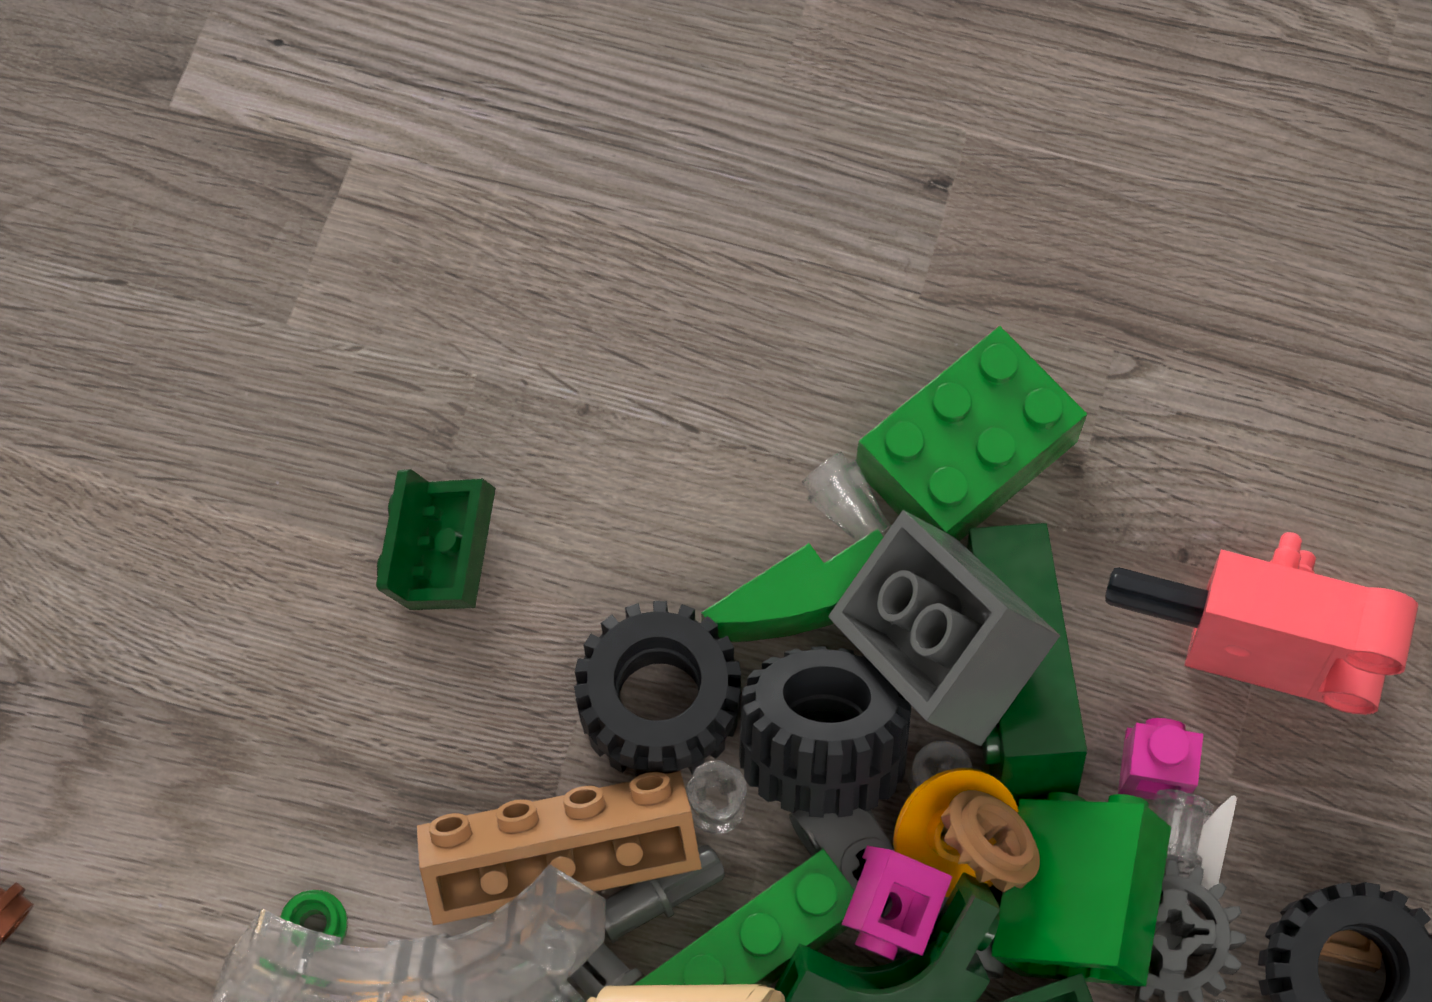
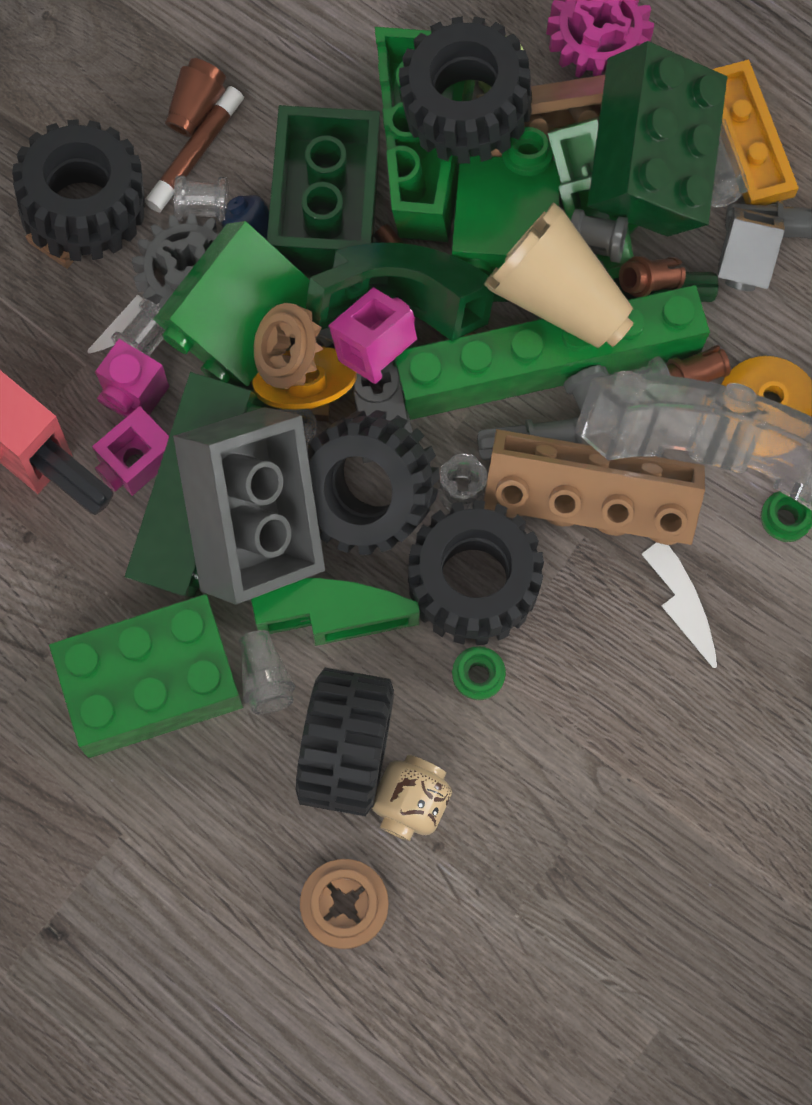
camera: 160 degrees left, 5 degrees up
(401, 772) = (685, 605): none -> white sticker
(435, 542) = (601, 766): dark green bracket -> none
(604, 579) = (478, 657): none -> green plate
(630, 428) = (411, 797): none -> tan head
(649, 287) = (317, 902): none -> medium nougat gear
(723, 437) = (344, 741): none -> black tyre
(1127, 658) = (132, 436): none -> dark pink brick

